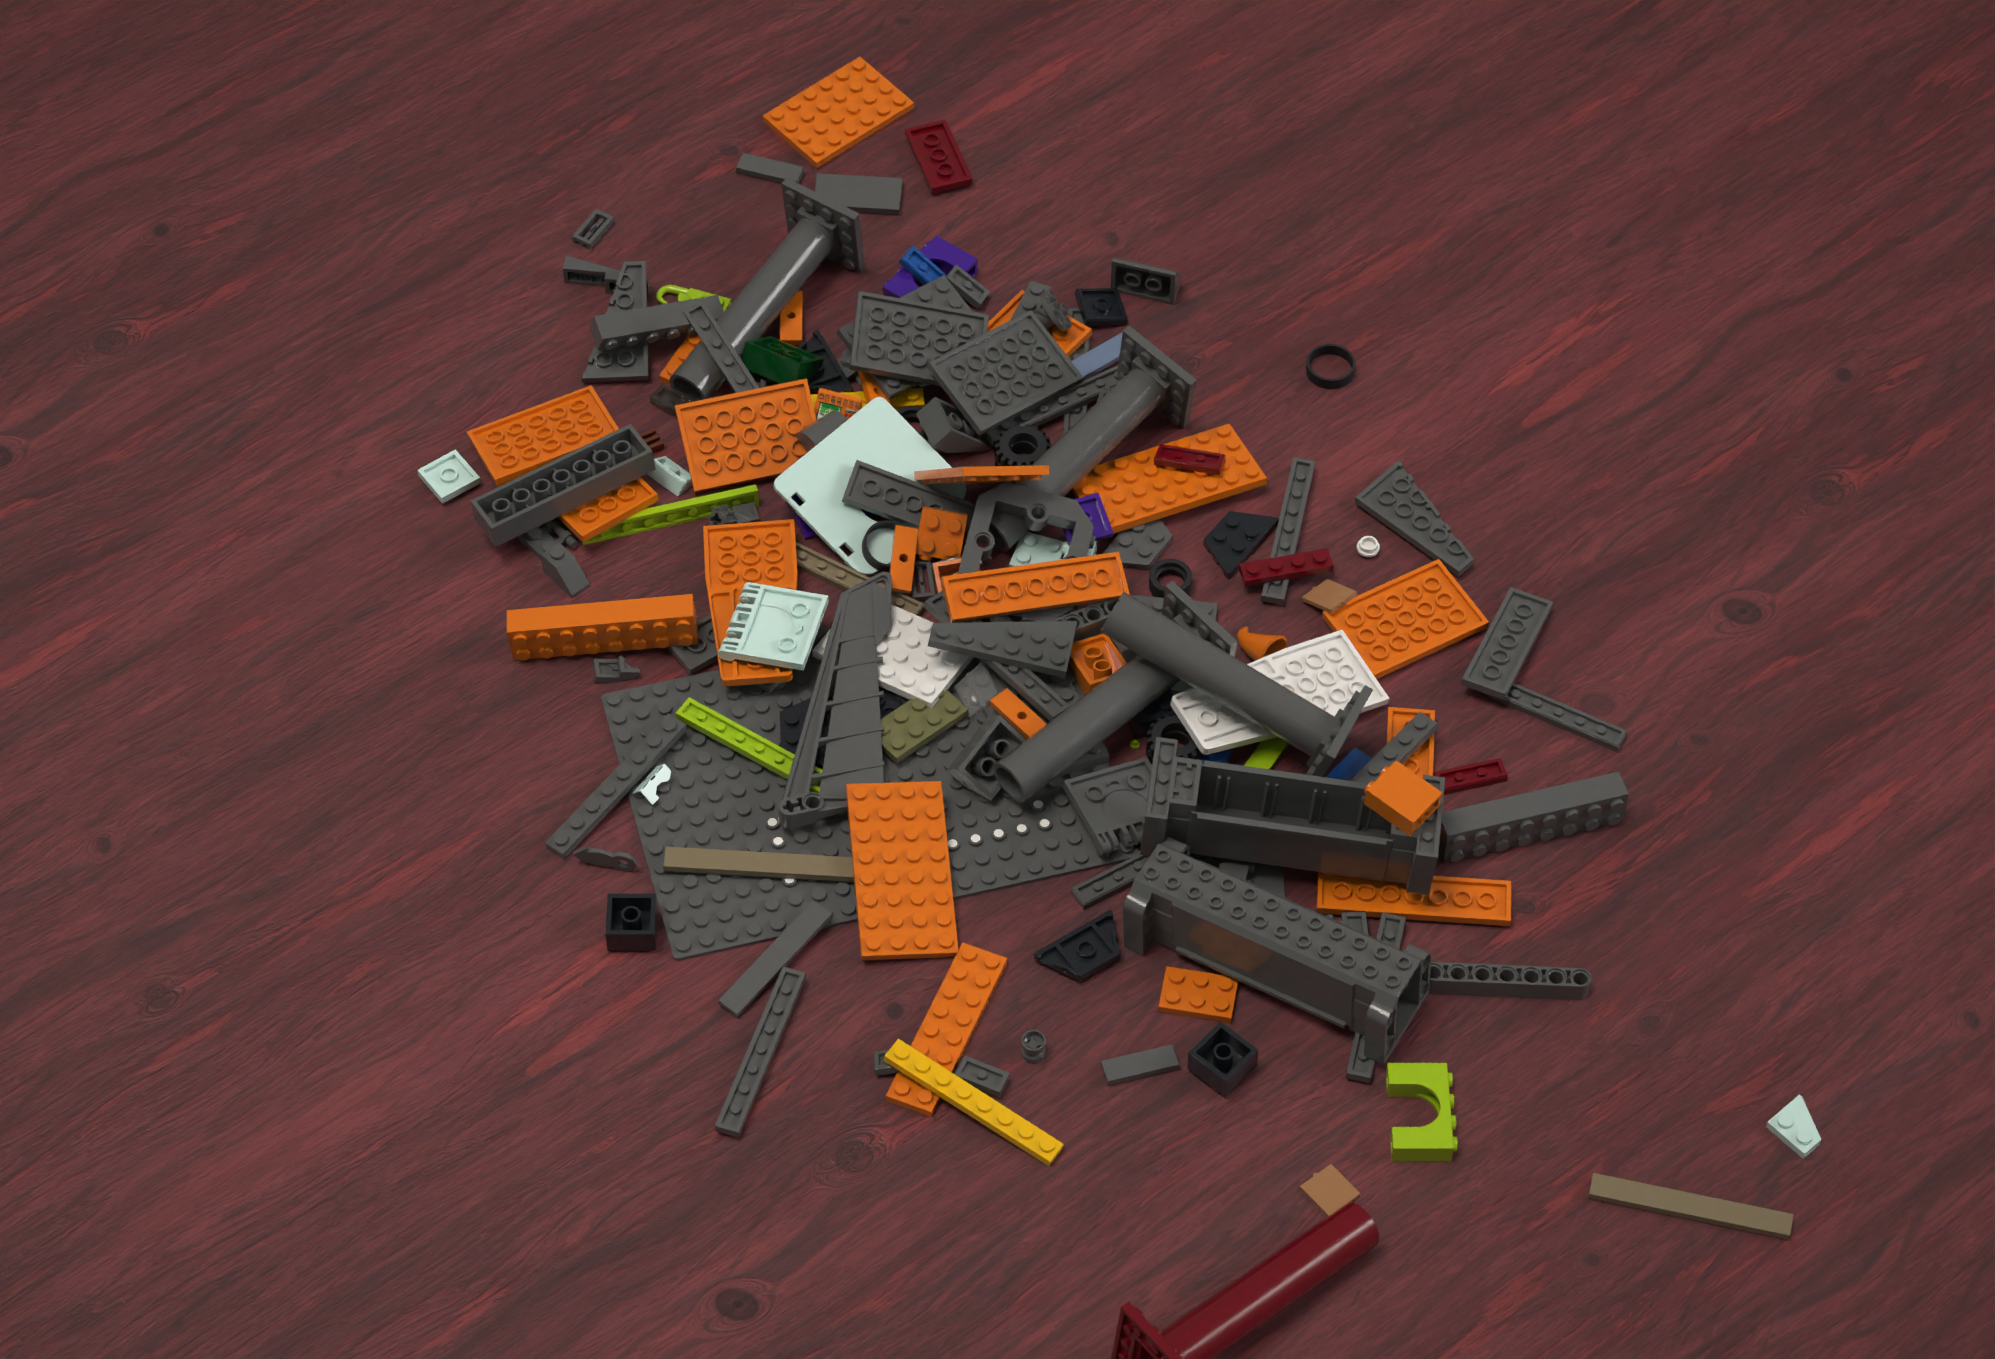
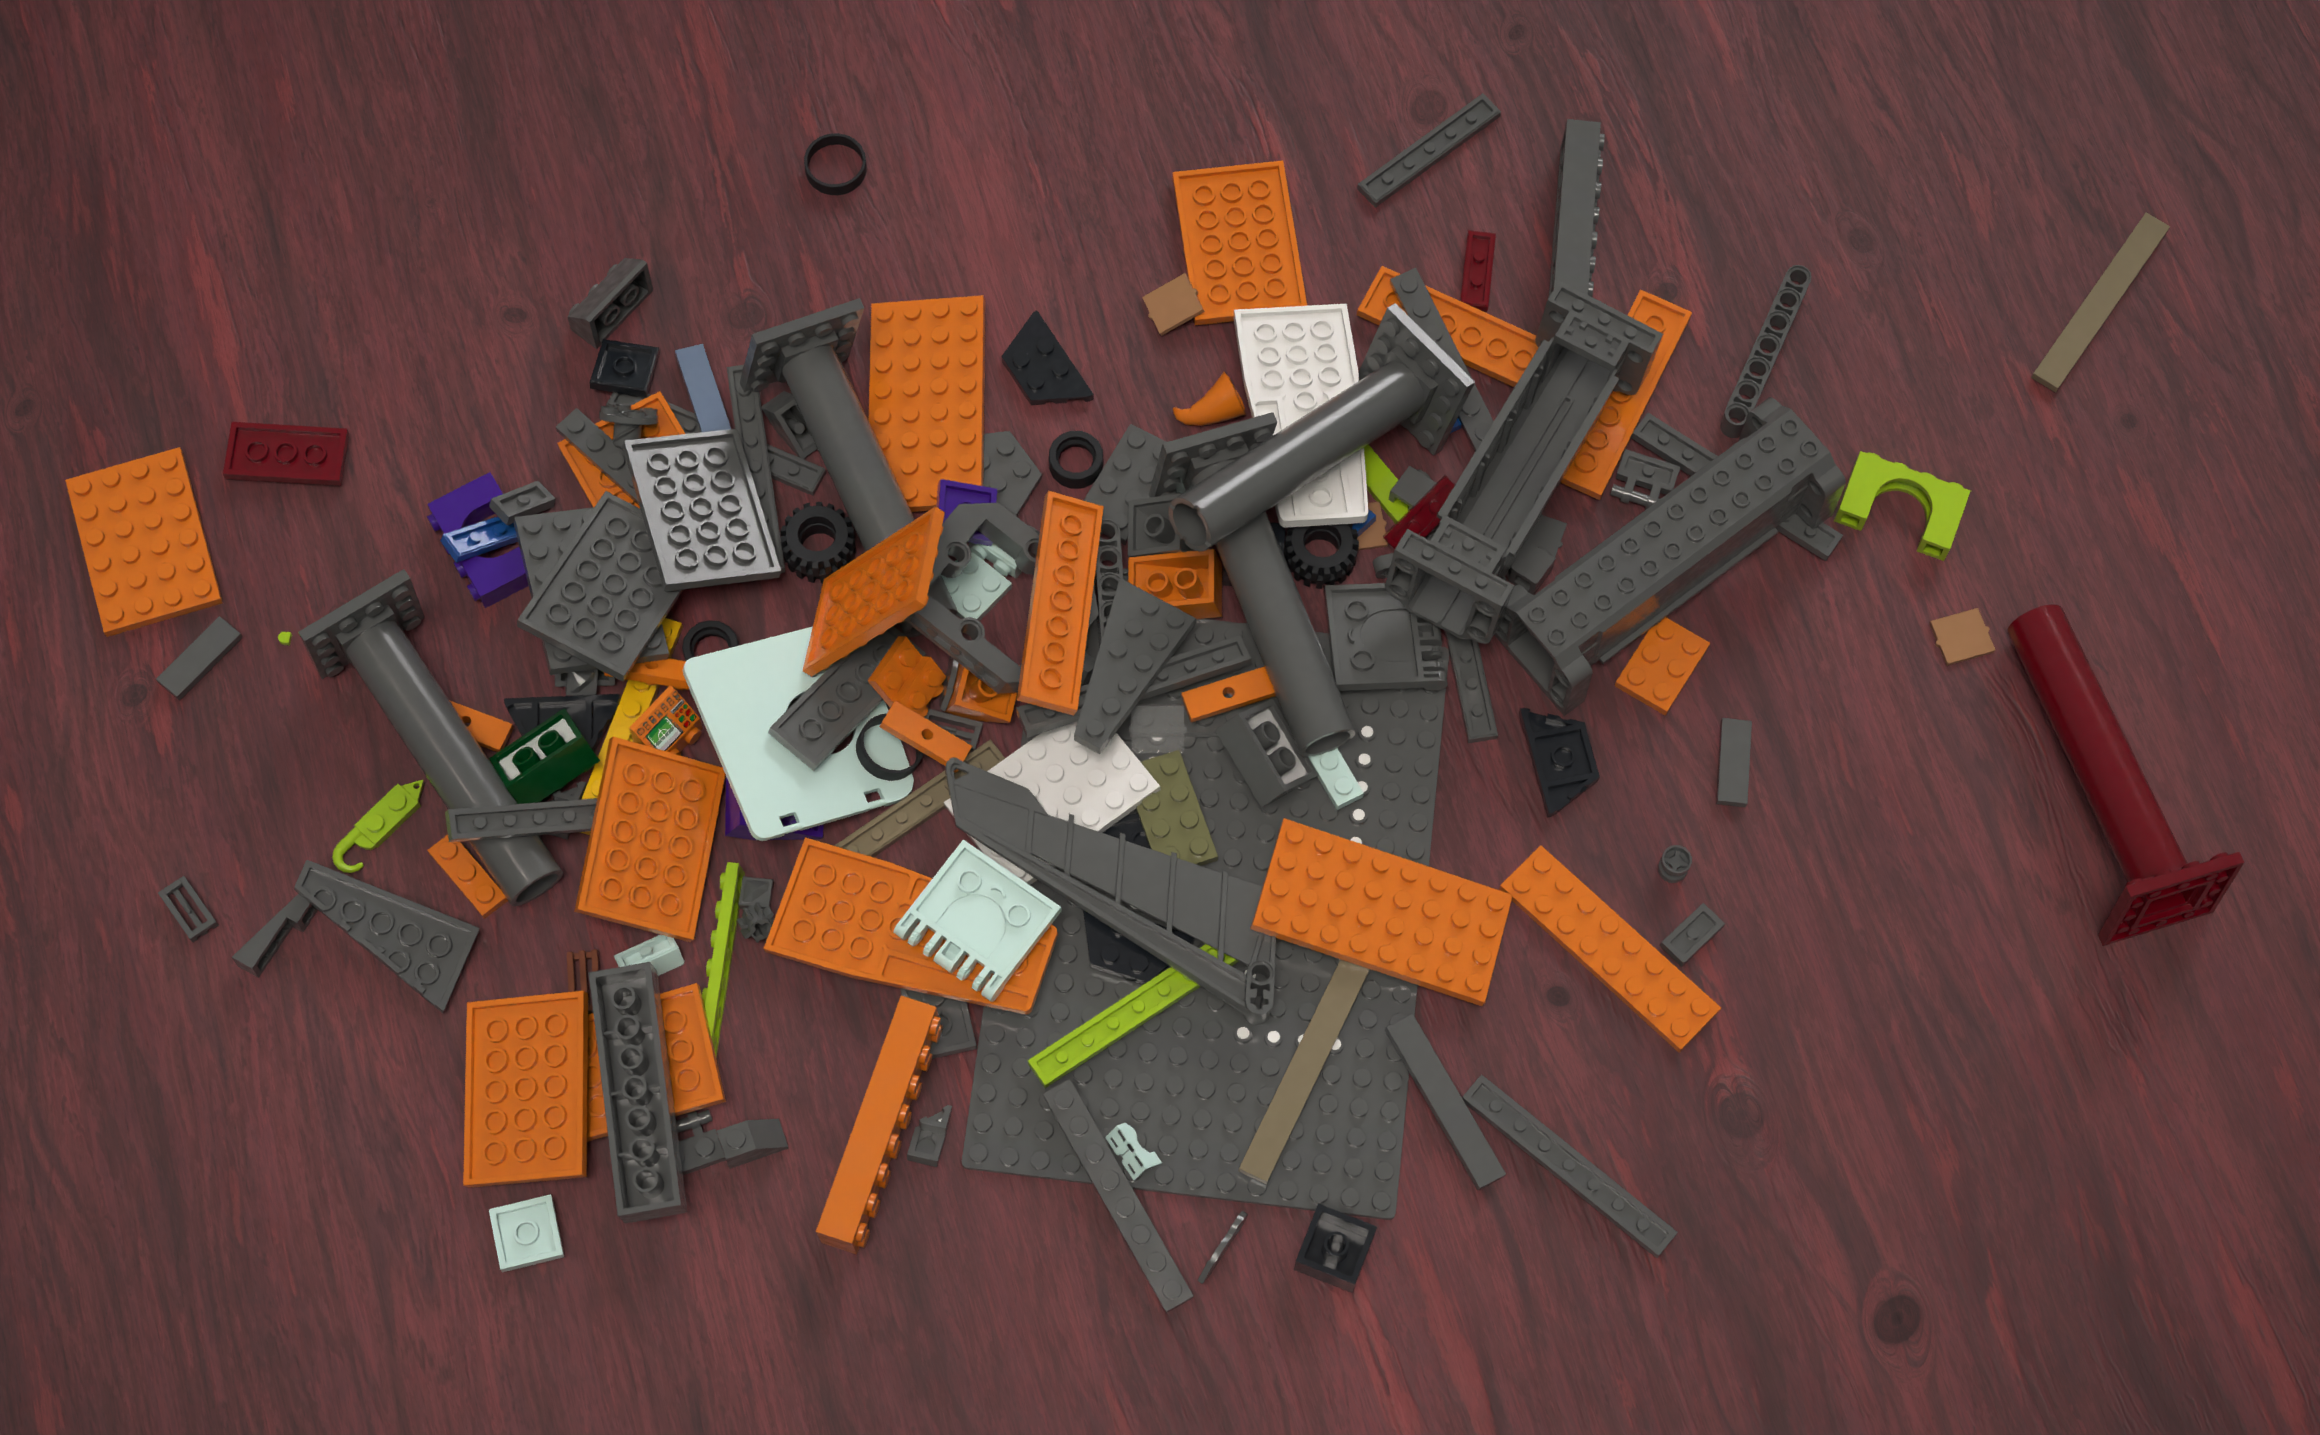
camera: 70 degrees left, 15 degrees up
(647, 323) = (413, 884): dark grey brick -> none
(667, 397) = (535, 912): clear smoke plate -> none
(820, 429) = (692, 750): dark grey brick -> none
(862, 193) = (295, 570): dark grey tile -> none
(881, 1066) = (1634, 1030): dark grey tile -> none
(949, 429) = (749, 608): dark grey slope -> none
(973, 1102) = (1728, 957): yellow plate -> none
(996, 813) = (1336, 778): none -> light aqua plate
(1189, 459) = (918, 364): dark red tile -> none
(1222, 1059) = (1770, 672): black brick -> none
(1286, 567) = (1119, 330): dark red plate -> none
(1290, 523) = (1058, 307): dark grey plate -> none
(1368, 546) = (1117, 236): white plate -> none
(1402, 797) = (1582, 332): orange brick -> none
(1410, 513) = (1092, 174): dark grey wing -> none
(1507, 643) = (1321, 155): dark grey plate -> none
(1795, 1127) = (2039, 163): light aqua wing -> none

